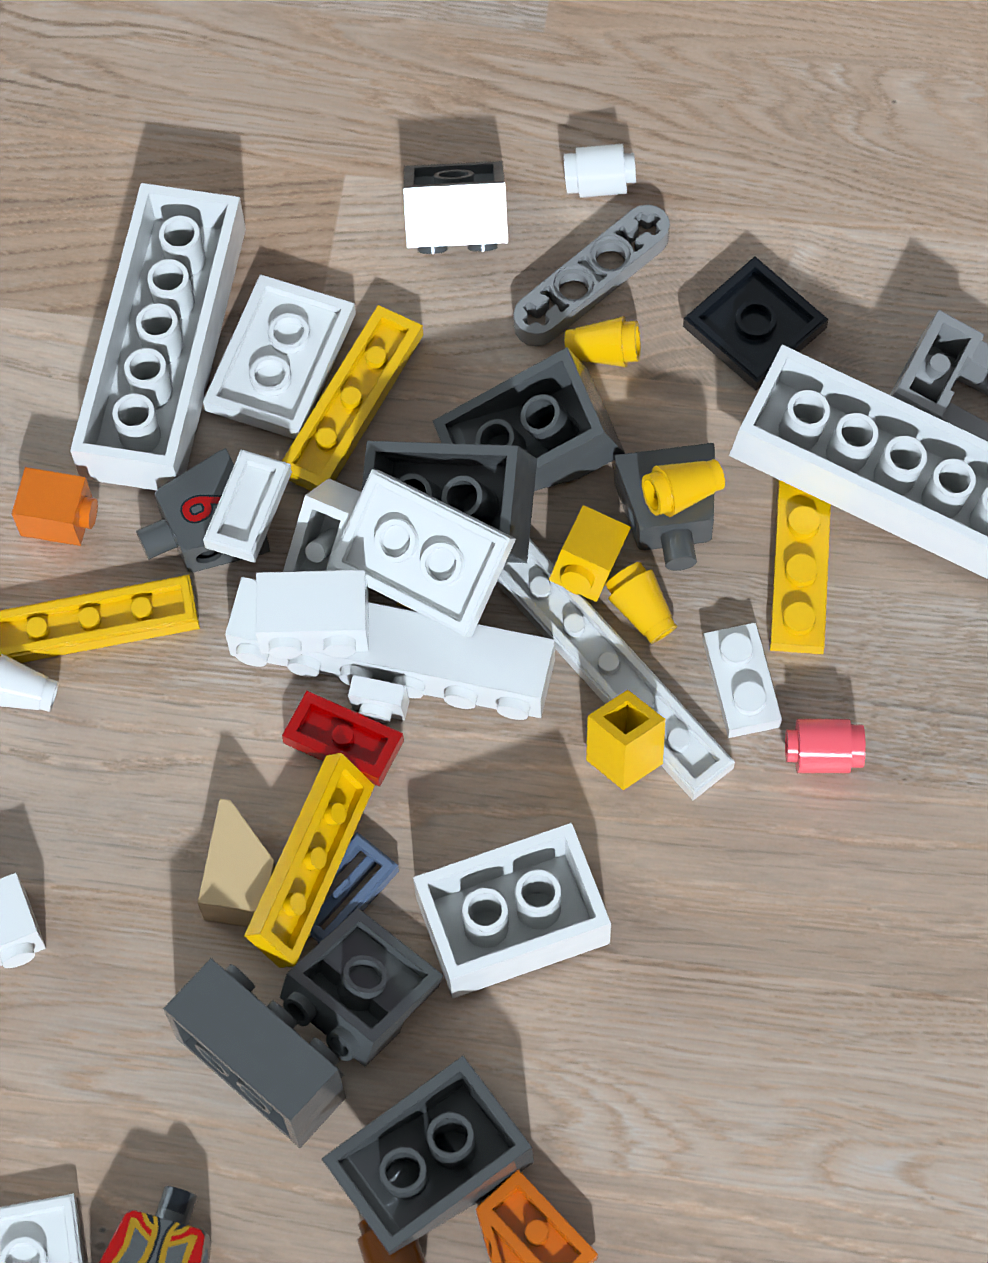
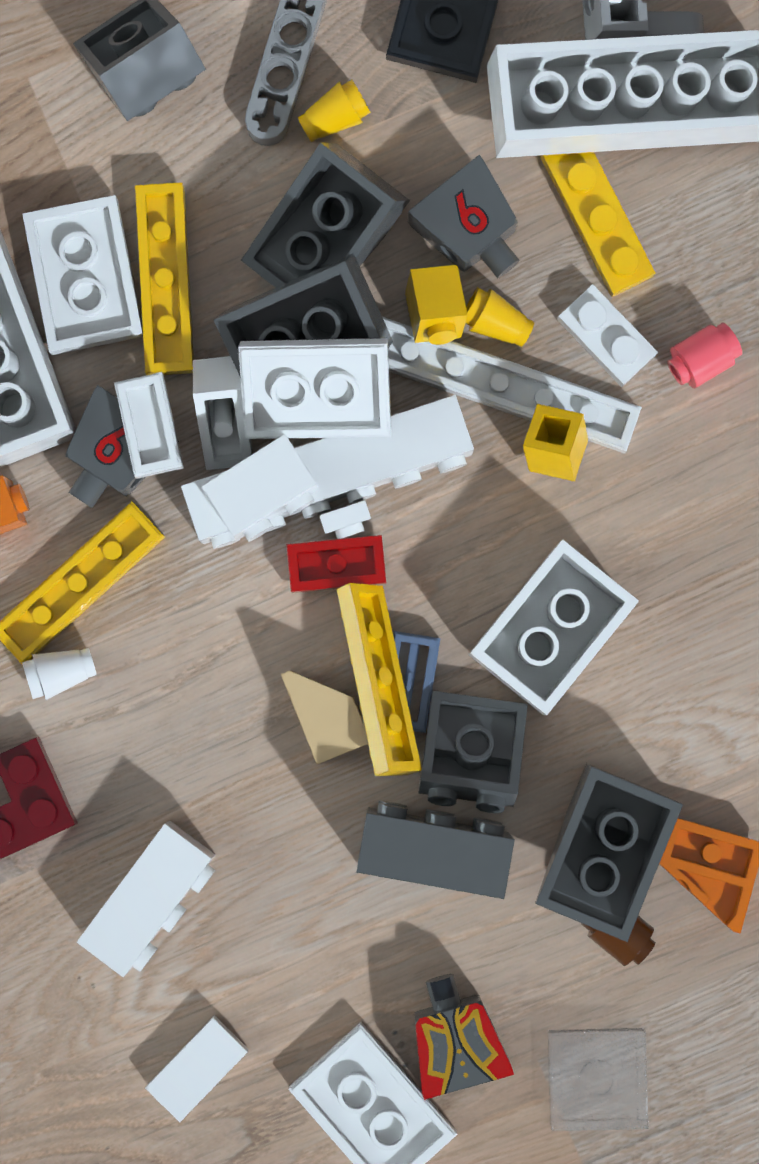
camera: 30 degrees left, 20 degrees up
(681, 485) = (481, 210): yellow cone -> none

